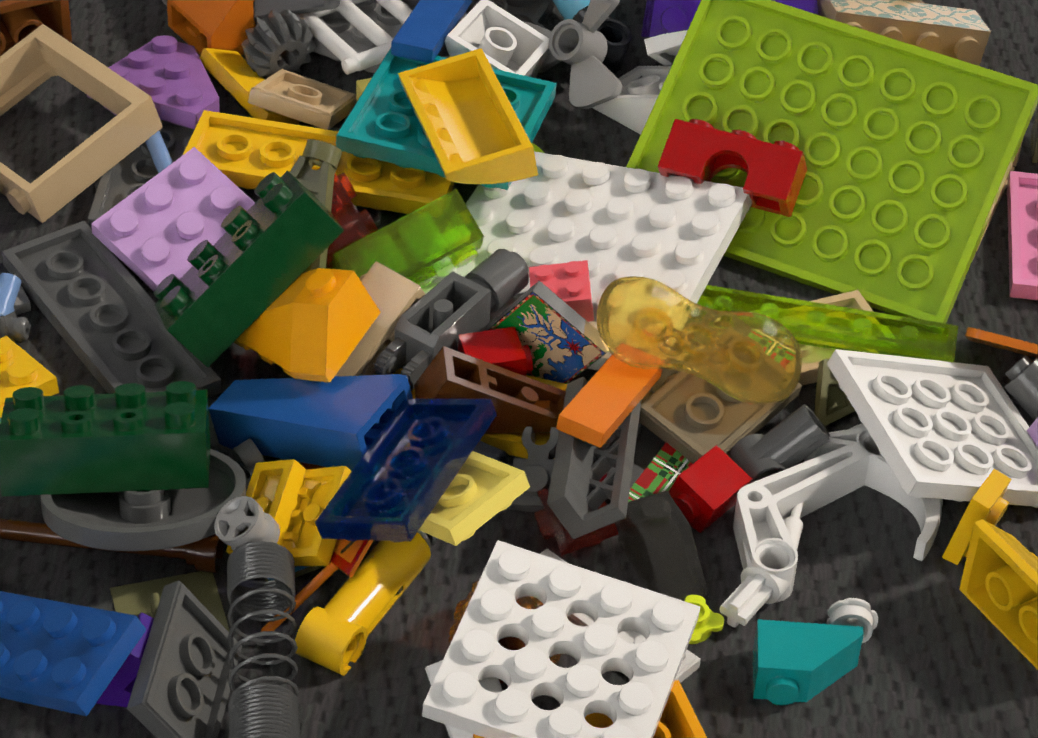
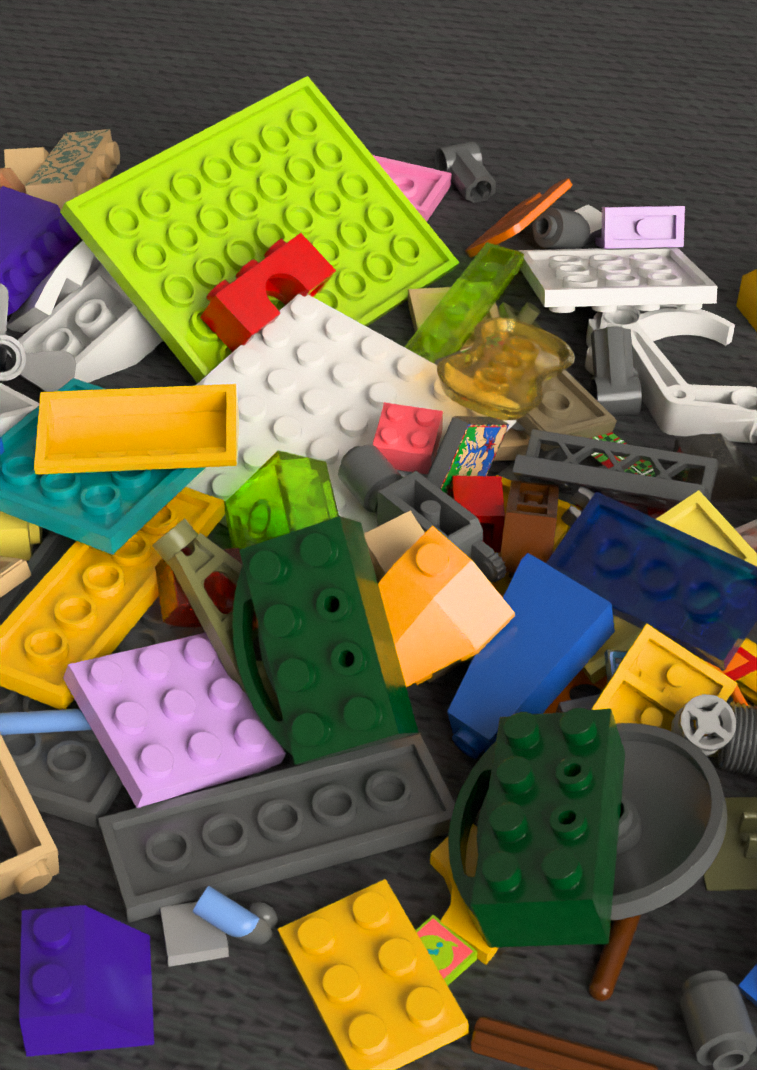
camera: 75 degrees left, 0 degrees up
(606, 401) = (570, 441): orange tile -> none
(708, 488) = (648, 422): red brick -> none
(985, 505) = (730, 273): yellow plate -> none

